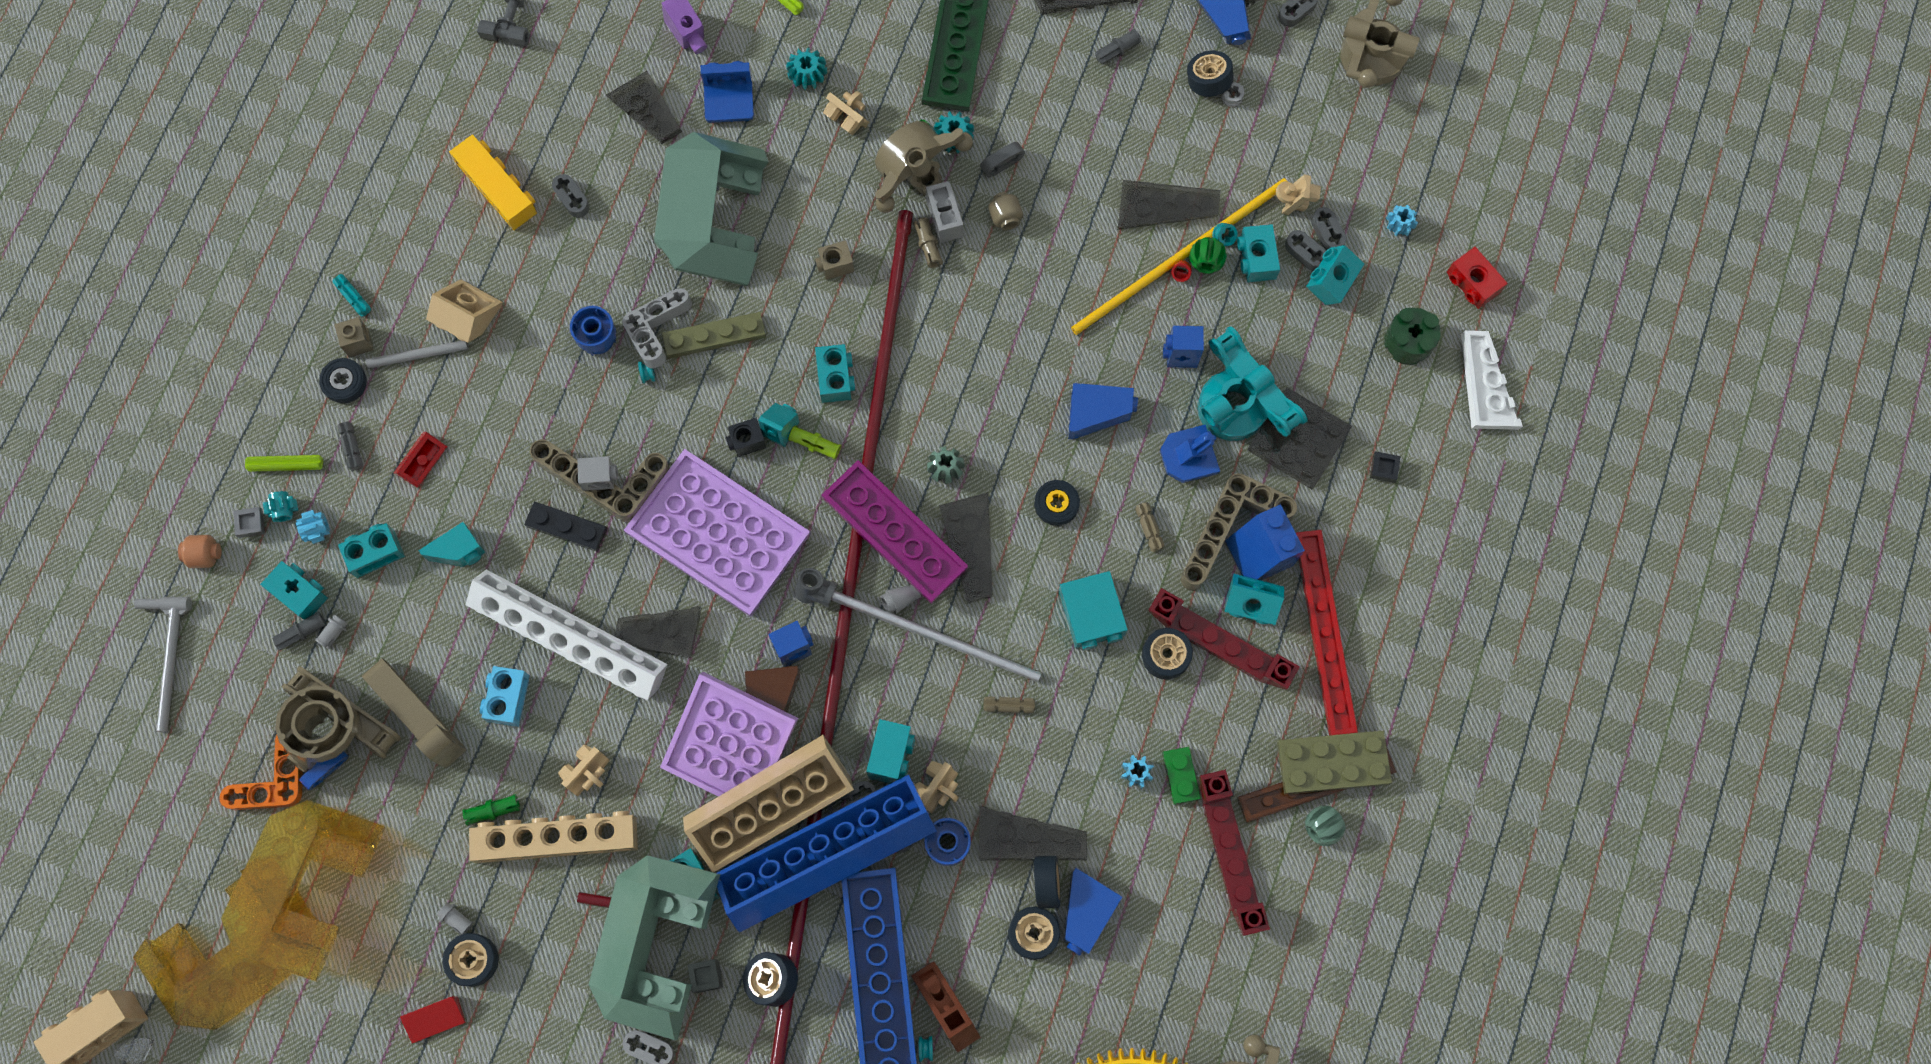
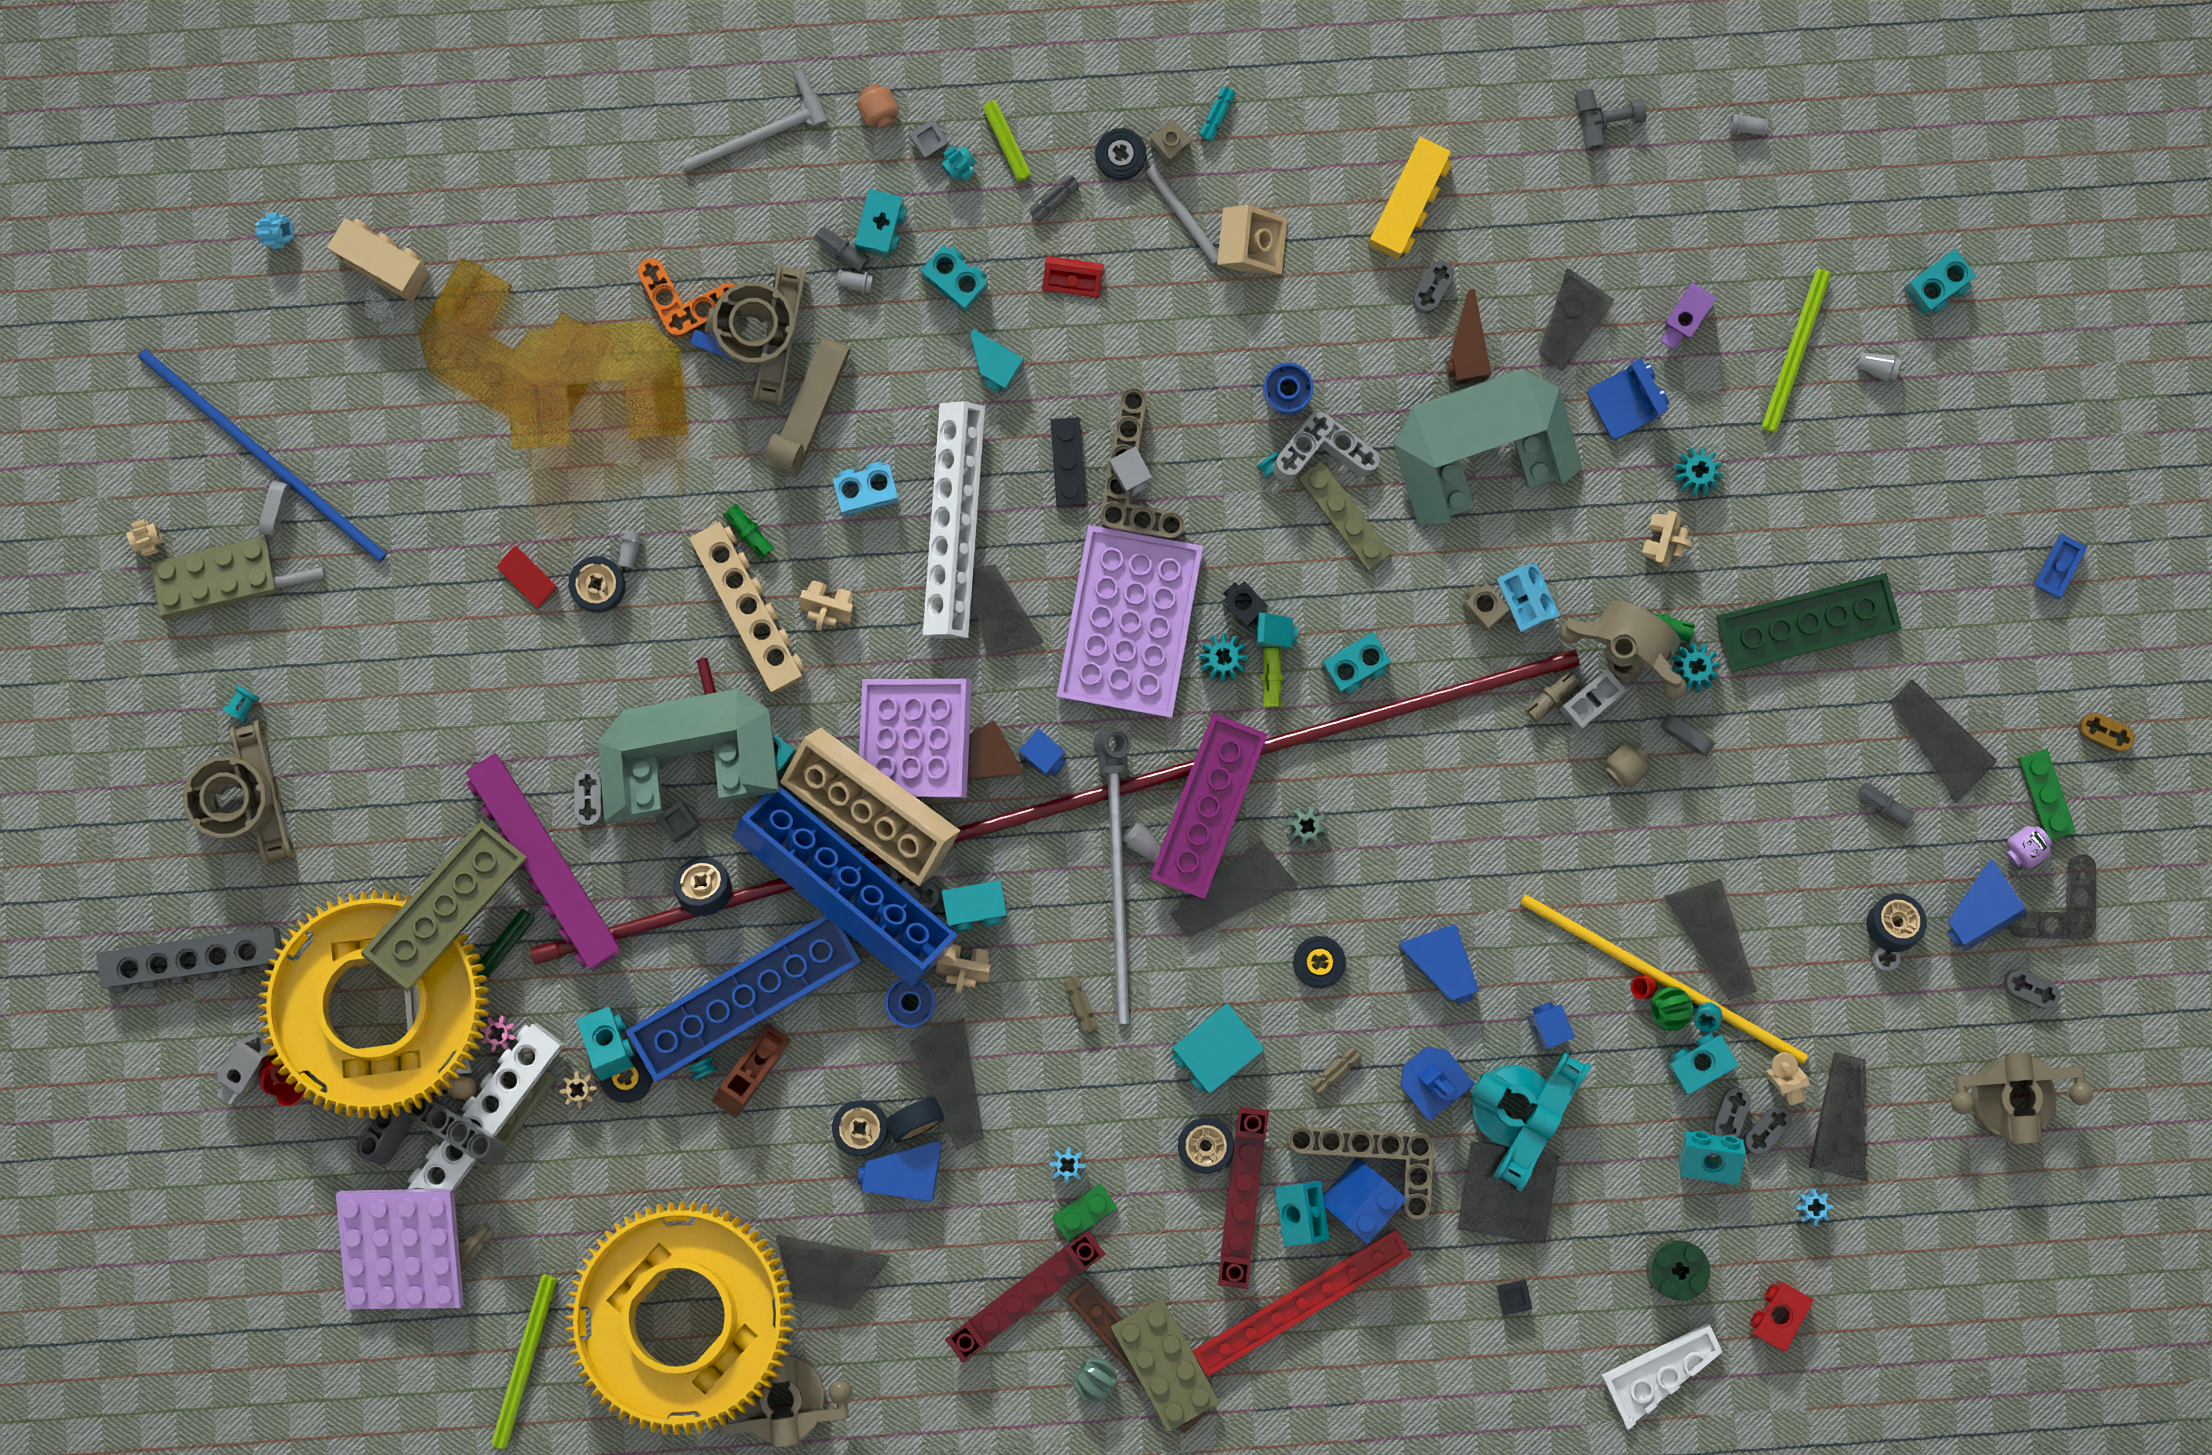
camera: 65 degrees right, 10 degrees up
(313, 526) = (952, 207): medium azure gear -> none
(633, 189) = (1468, 353): none -> reddish brown slope
(786, 464) = (1233, 656): none -> teal gear
(843, 224) = (1528, 597): none -> medium azure brick
(1144, 1014) = (828, 1272): none -> clear smoke wing
(1354, 181) = (1842, 1122): none -> clear smoke wing

